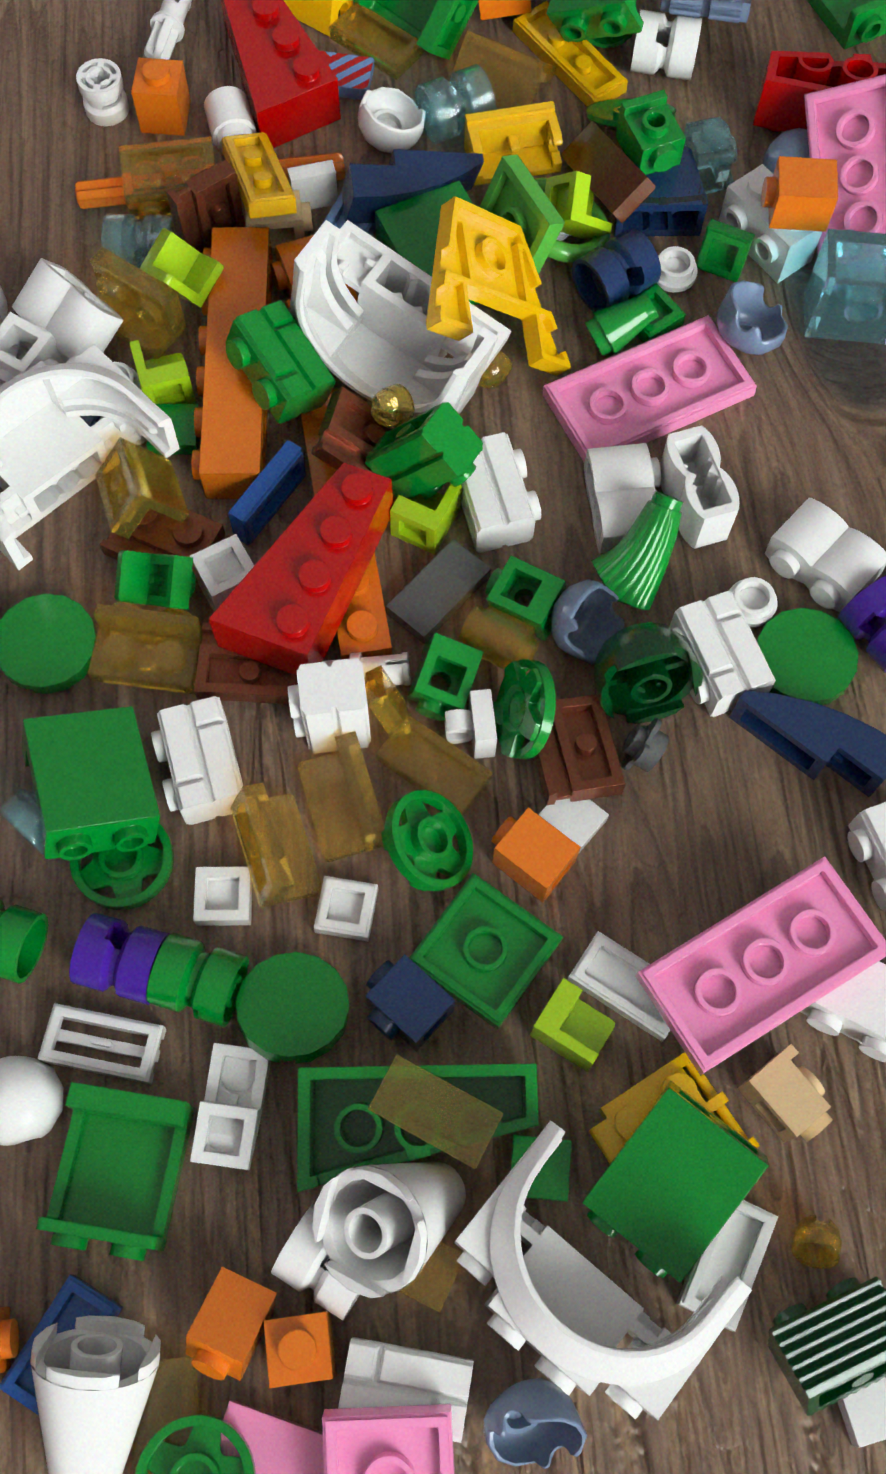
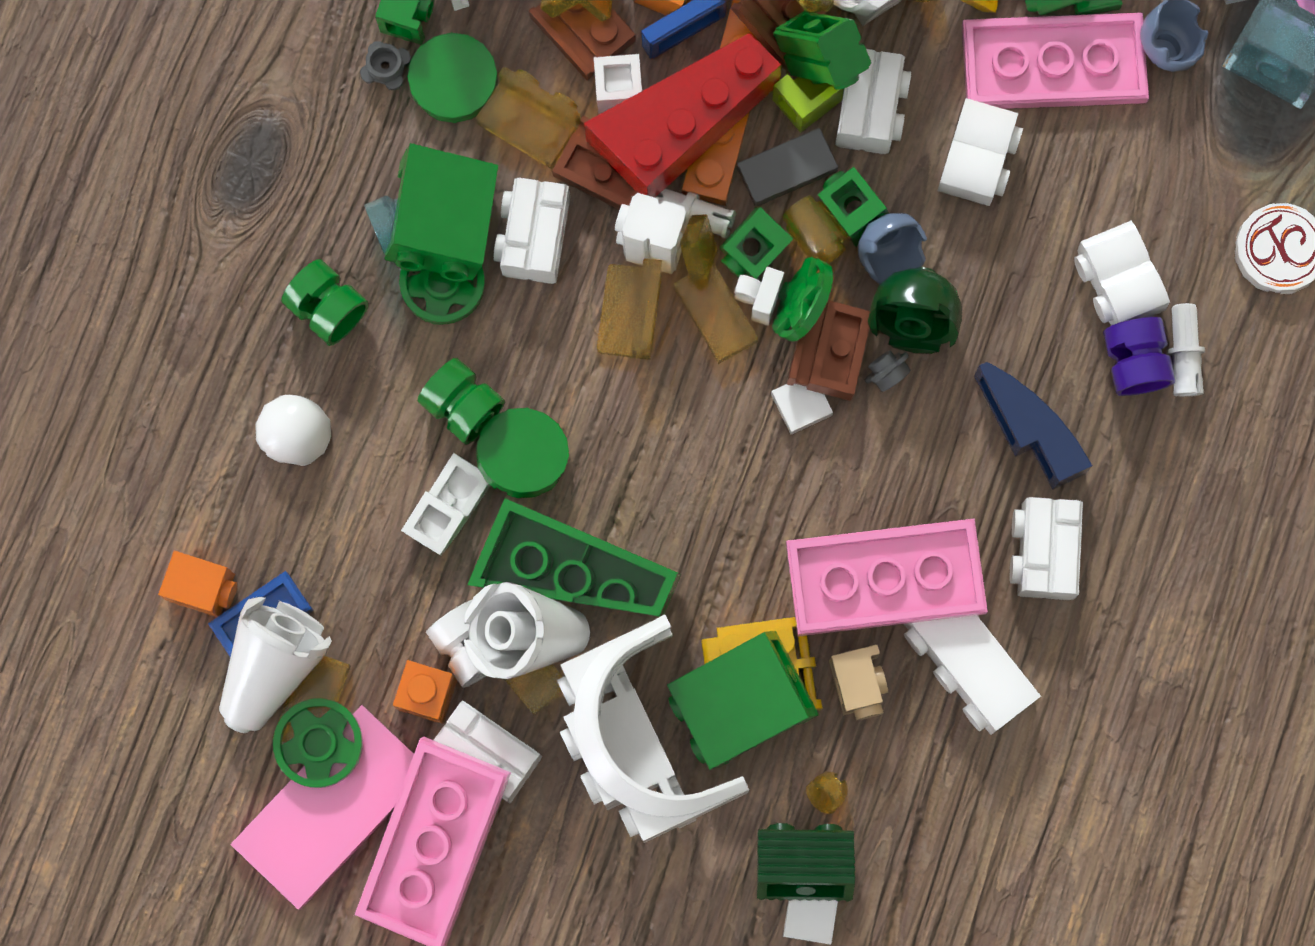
camera: 30 degrees right, 10 degrees up
(114, 956) = (406, 355): dark purple wheel -> none
(118, 1170) = (348, 513): green panel -> none
(148, 1053) = (402, 440): white tile -> none
(154, 579) = (559, 63): green bracket -> none
(222, 896) = (507, 344): white tile -> none
(229, 1325) = (382, 654): orange brick -> none
(275, 846) = (562, 324): clear yellow panel -> none
(346, 908) = (596, 395): white tile -> none
(406, 1002) = (608, 487): dark blue brick -> none
(425, 841) = (680, 371): green wheel -> none
(435, 1111) = (588, 572): clear yellow tile -> none
(485, 950) = (686, 474): green plate -> none
(532, 1423) = (562, 814): sand blue hair -> none
(533, 853) = (758, 417): orange brick -> none
(553, 1178) = (657, 658): green tile -> none
(572, 1026) = (725, 560): lime panel -> none
(609, 976) = (768, 533): white tile -> none
(641, 558) = (959, 215): green piece -> none
(694, 476) = (1042, 171): white brick -> none
(724, 650) = (988, 320): white brick -> none
(731, 1254) = (764, 772): white tile -> none
(755, 600) = (1040, 288): white plate -> none
(809, 655) = (1060, 353): green tile -> none

